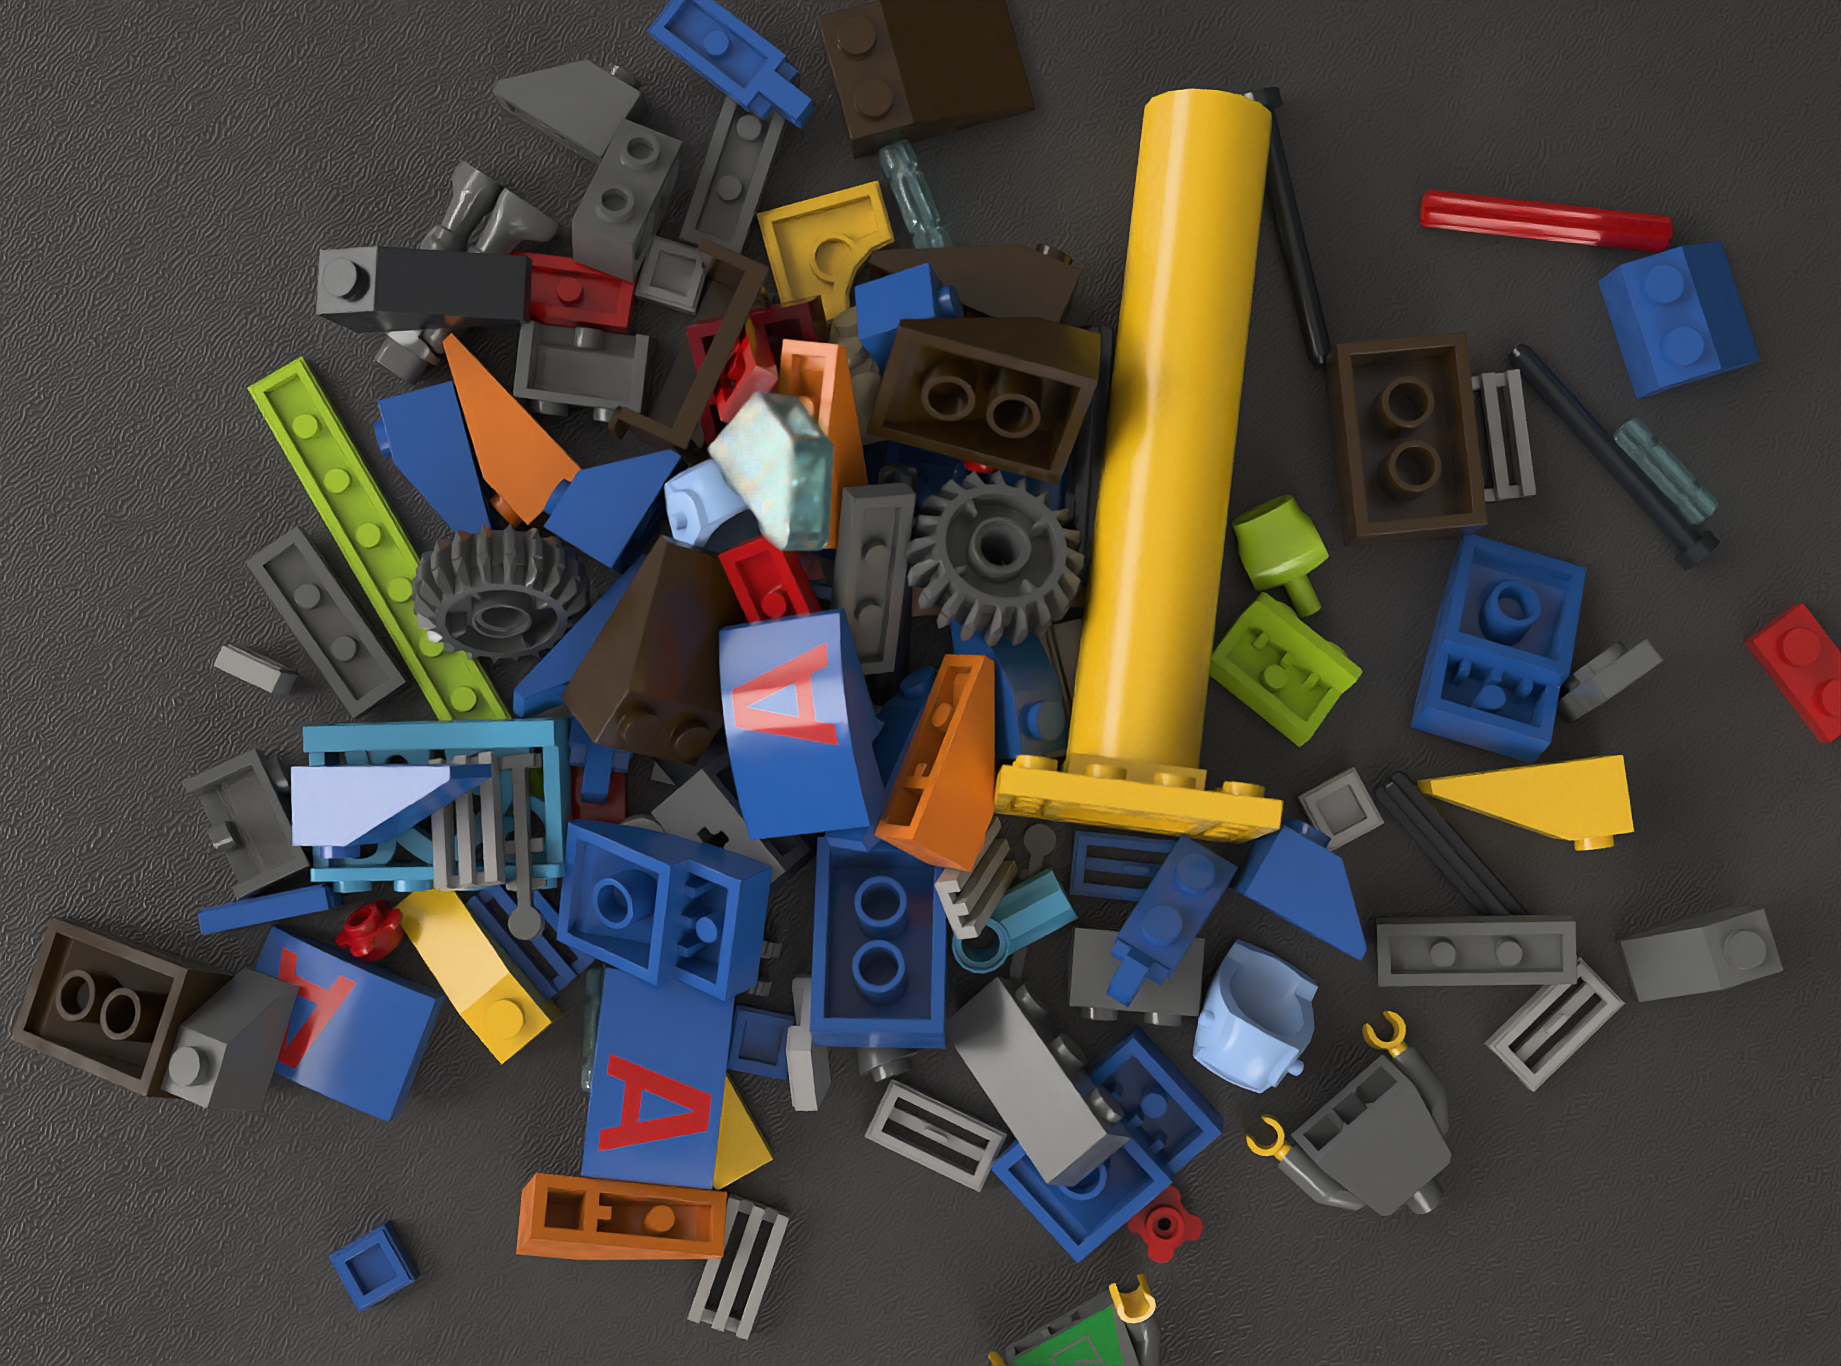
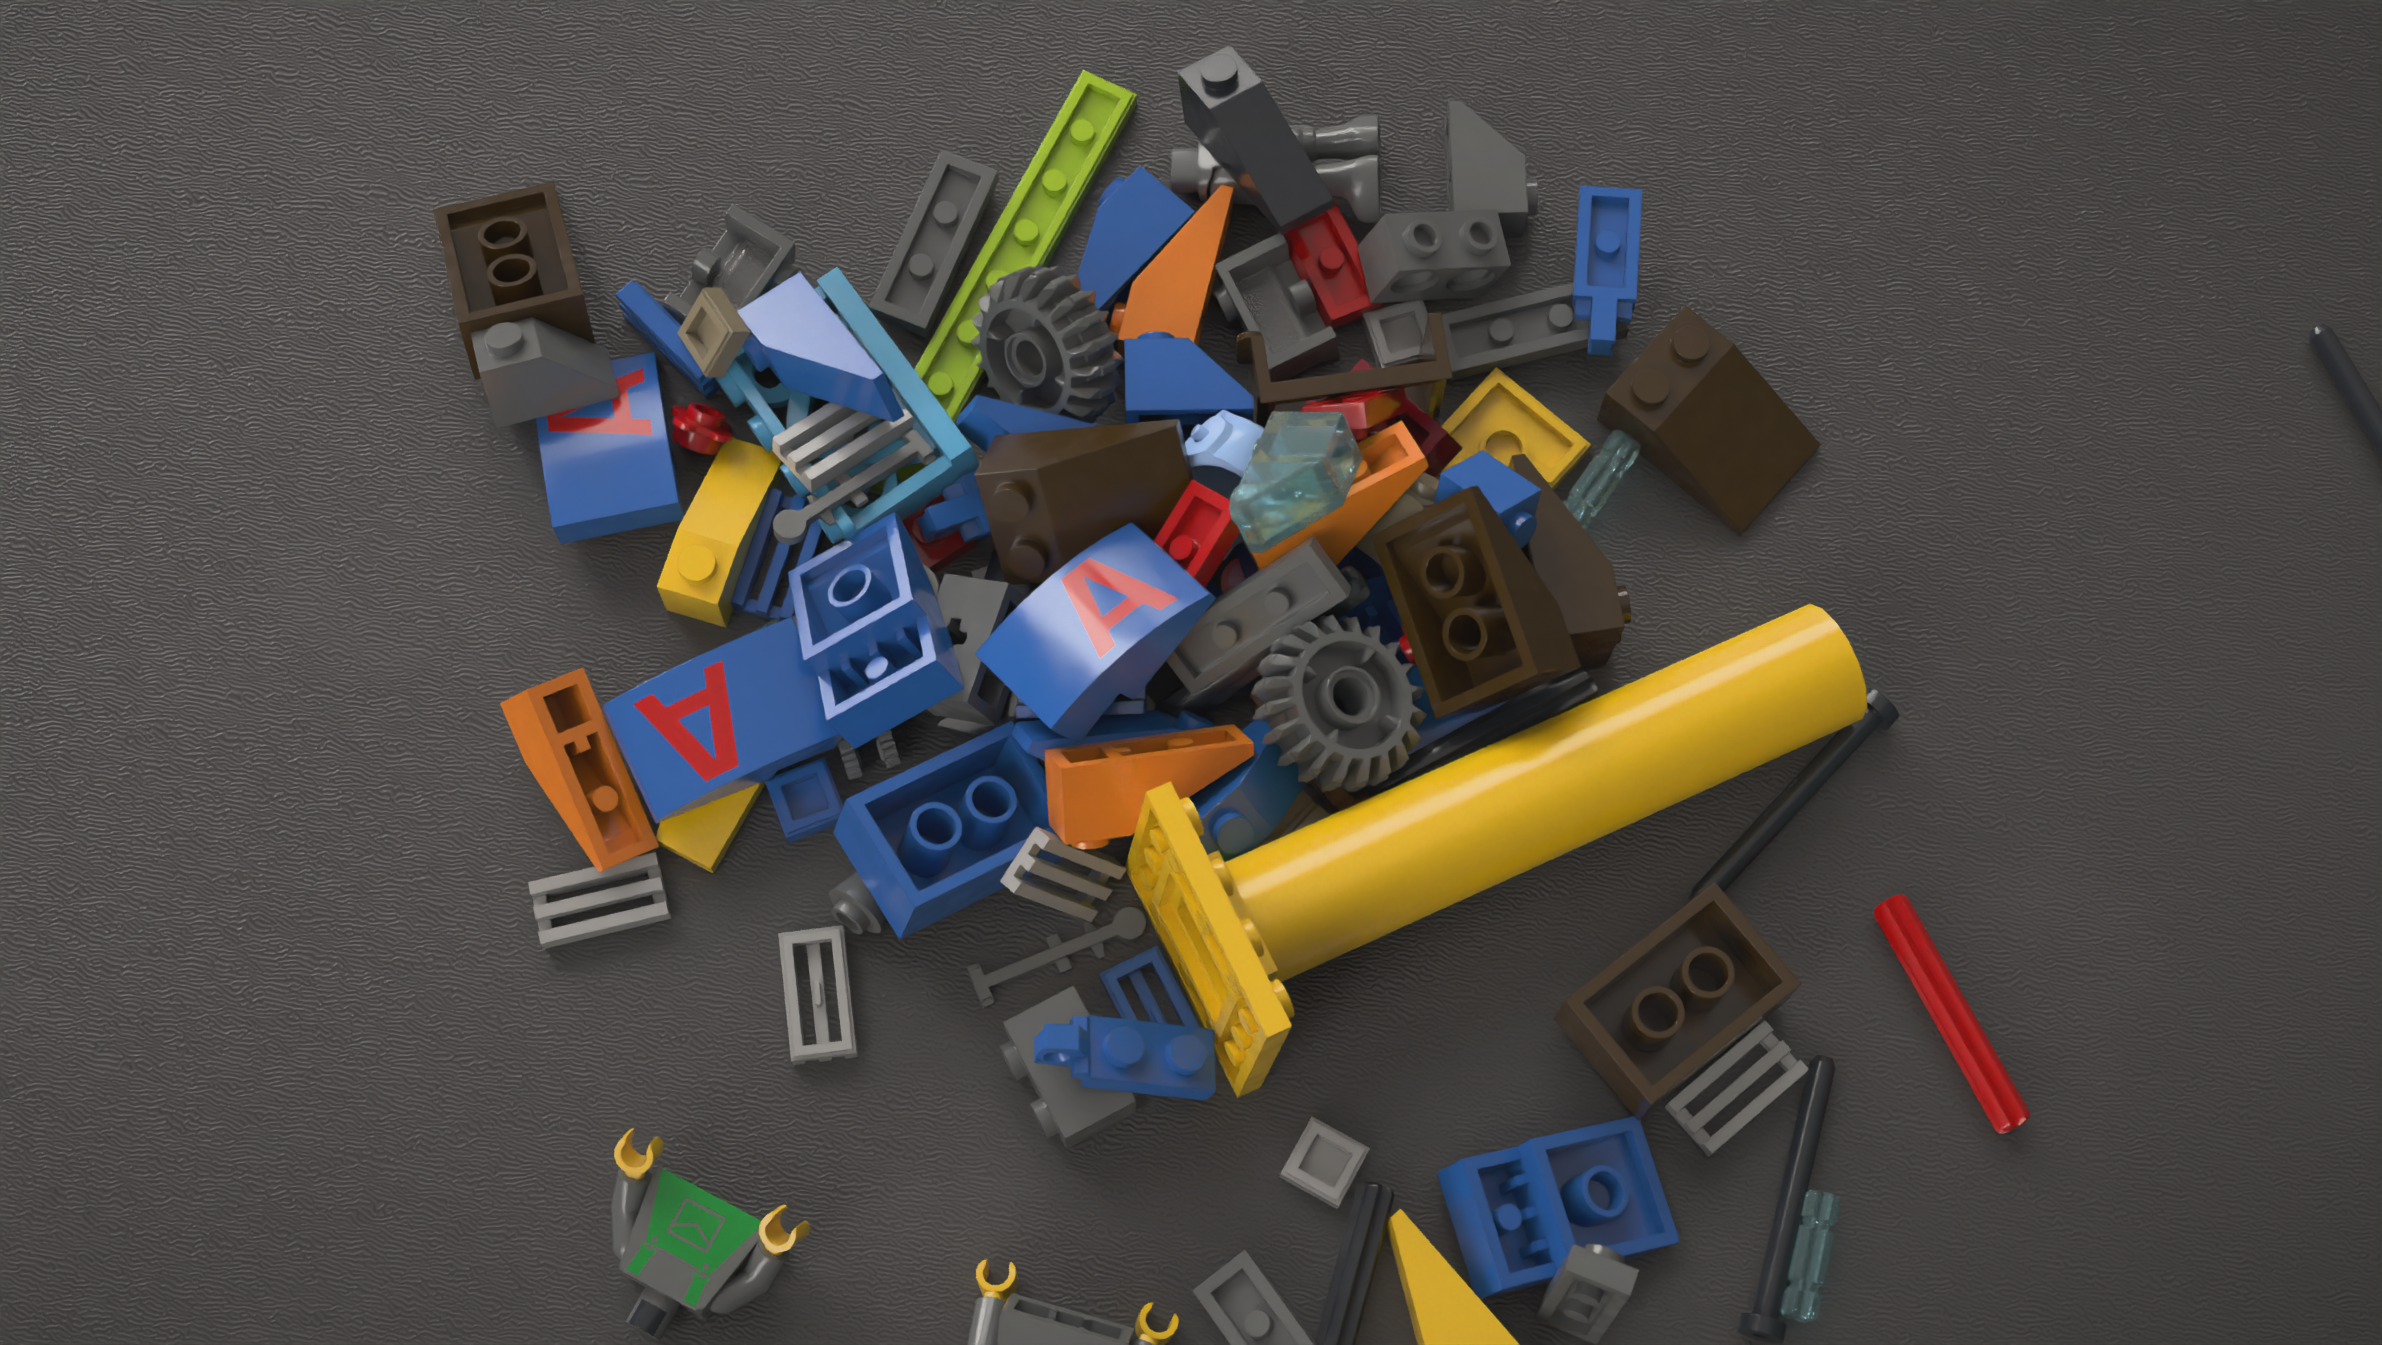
camera: 50 degrees right, 15 degrees down
(256, 669) = (859, 211): light grey tile -> none
(298, 876) = (713, 332): none -> dark tan tile
(374, 1266) = (416, 604): blue tile -> none
(806, 1062) = (809, 842): light grey tile -> none
(1020, 918) = (1048, 937): dark azure piece -> none
(1037, 1081) = (920, 1031): brick -> none
(1163, 1241) = (871, 1255): red plate -> none
(1166, 1127) = (903, 1142): blue slope -> none
(1255, 1018) = (1094, 1194): light blue helmet -> none
(1279, 549) = (1514, 963): lime piece -> none
(1282, 668) = (1411, 1027): lime bracket -> none
(1302, 884) = (1237, 1150): blue slope -> none
(1678, 317) = (1954, 1181): blue slope -> none

